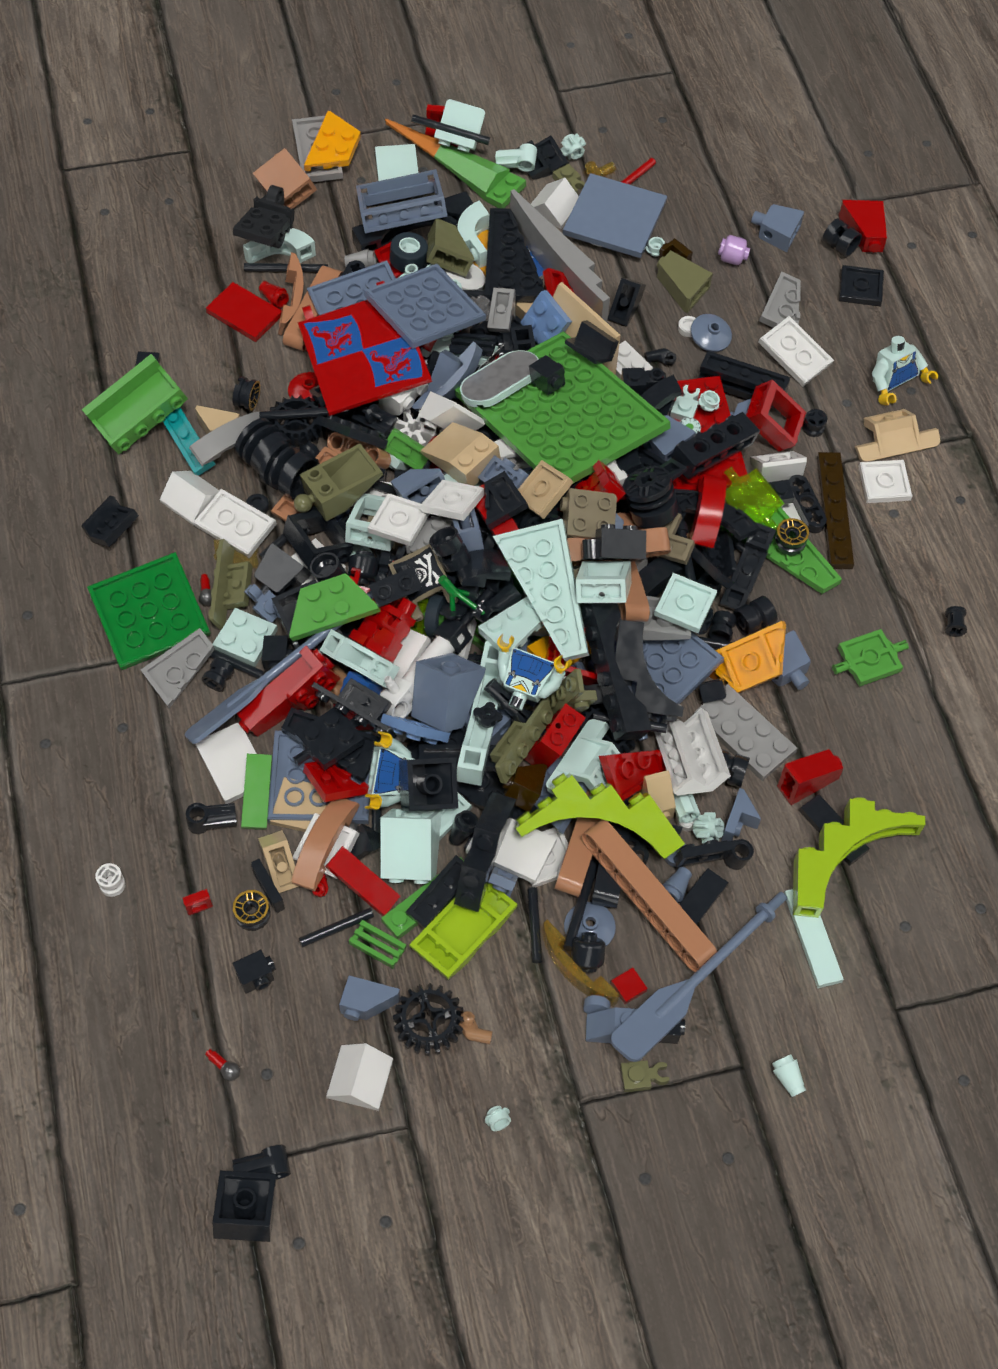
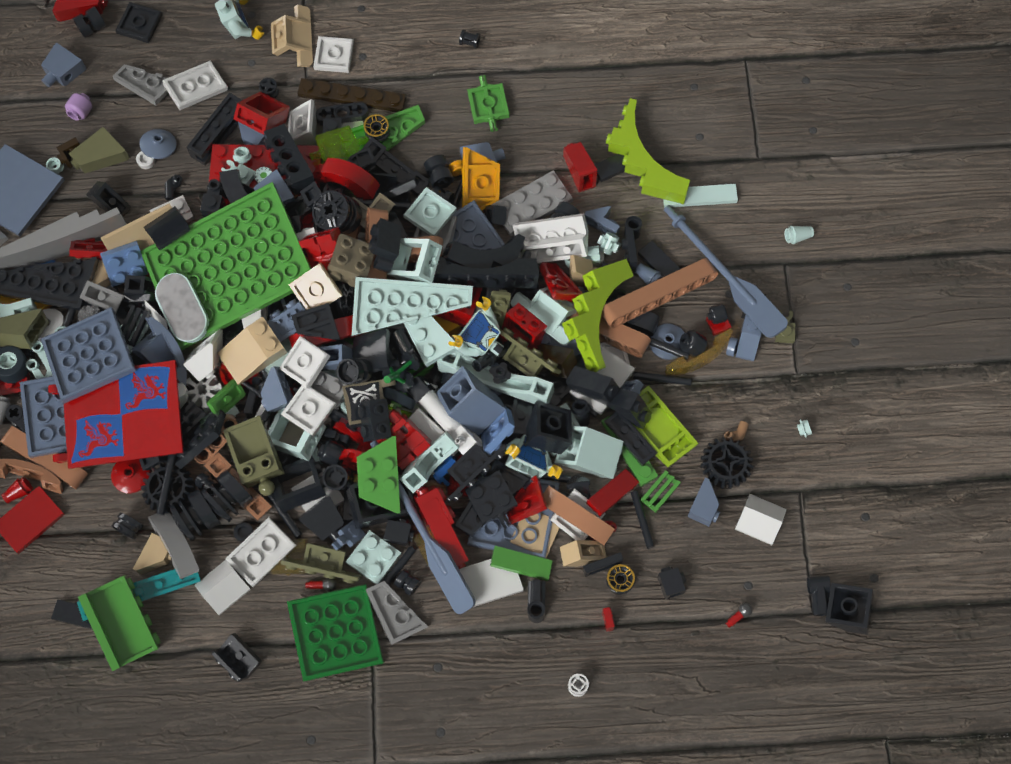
camera: 75 degrees left, 10 degrees up
(547, 374) = (194, 267): black brick -> none
(636, 975) = (717, 314): none -> black piece

